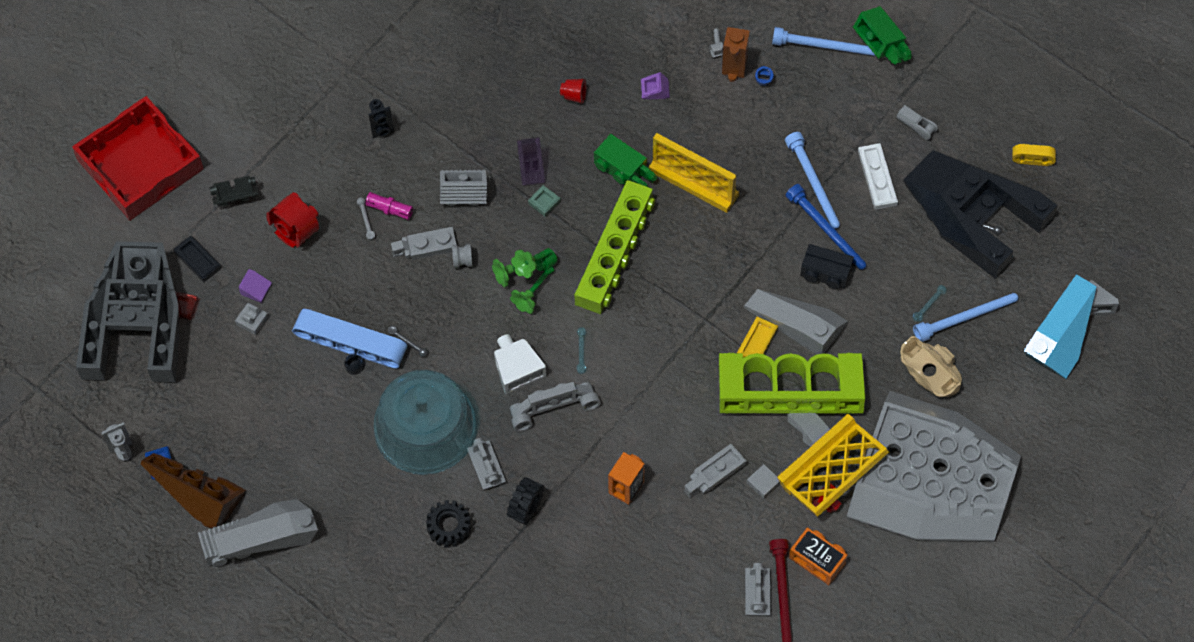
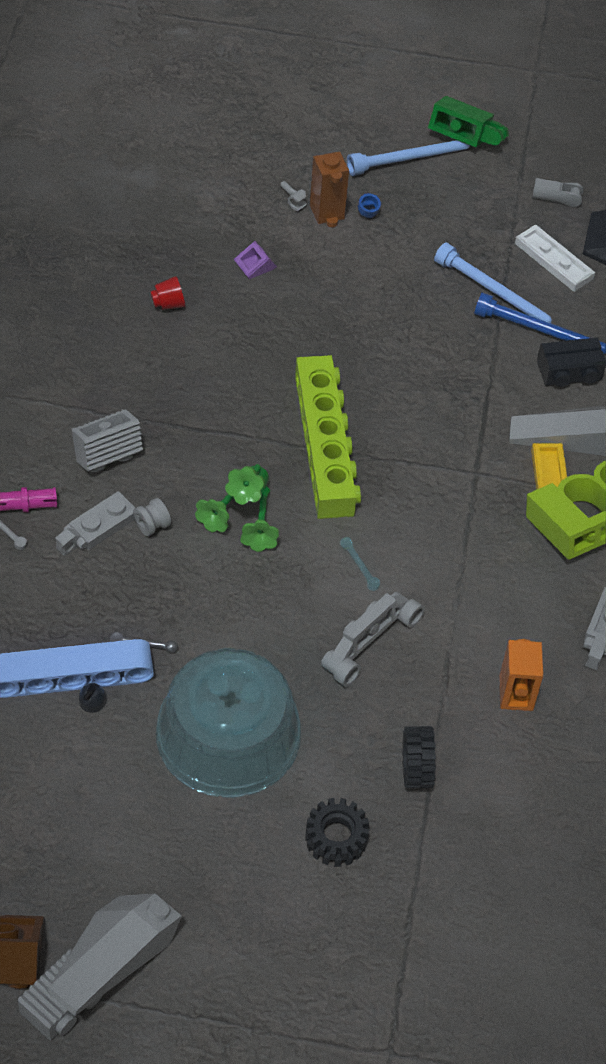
camera: 35 degrees left, 10 degrees down
(485, 464) = (335, 740): light grey hinge -> none
(517, 364) = (298, 608): white torso -> none
(530, 161) = (166, 383): clear purple slope -> none
(544, 201) = (208, 422): sand green tile -> none
(622, 162) = (274, 345): green hinge -> none
(691, 173) = (365, 334): yellow fence -> none

